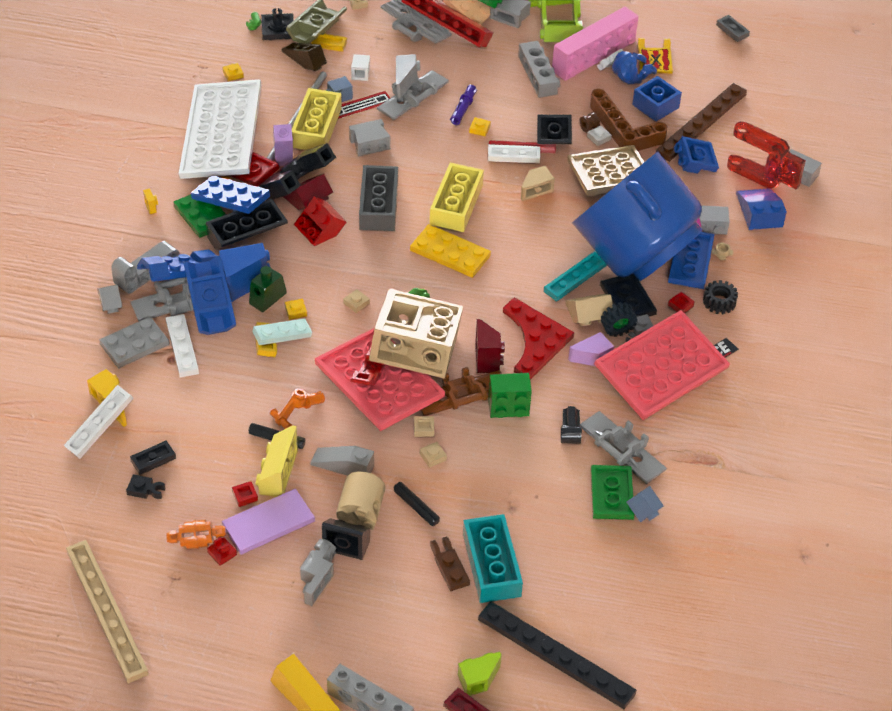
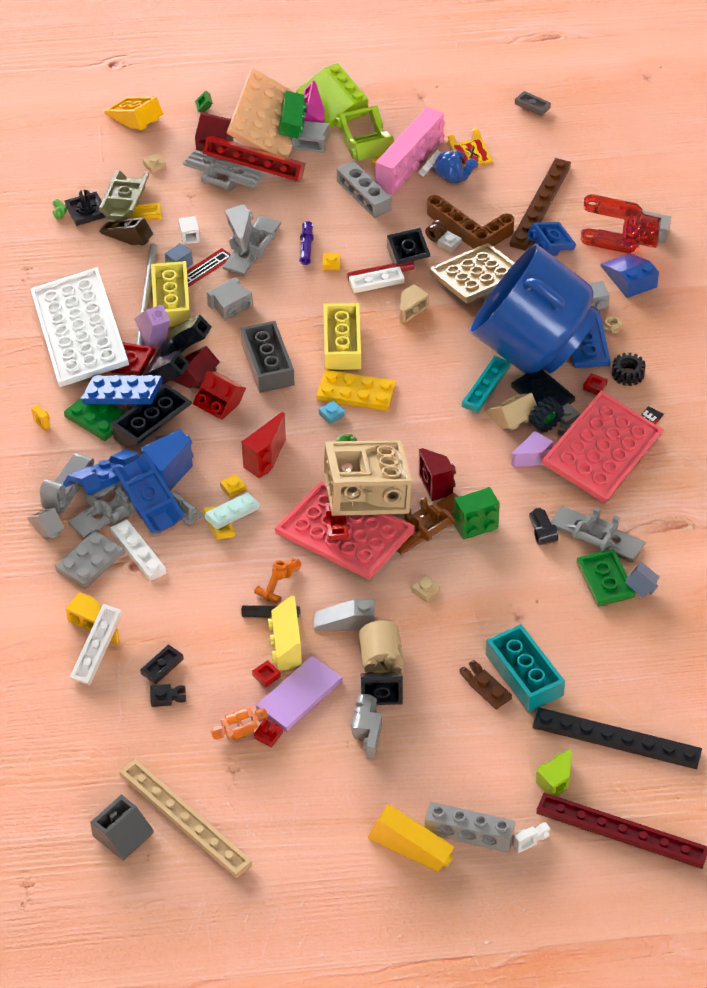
camera: 15 degrees left, 0 degrees up
(41, 601) = (121, 827): none -> dark grey slope
(233, 72) = (61, 266): yellow plate -> none
(243, 321) = (191, 512): none -> light grey hinge
(266, 289) = (201, 468): dark green torso -> none
(338, 279) = (263, 446): none -> red slope
(356, 301) = (288, 462): tan plate -> none
(416, 503) = (431, 638): black axle -> none
(418, 265) = (332, 412): none -> medium azure plate
(423, 426) = (406, 564): tan plate -> none
(541, 336) = (478, 449): red plate -> none
(656, 98) = (491, 191): blue brick -> none

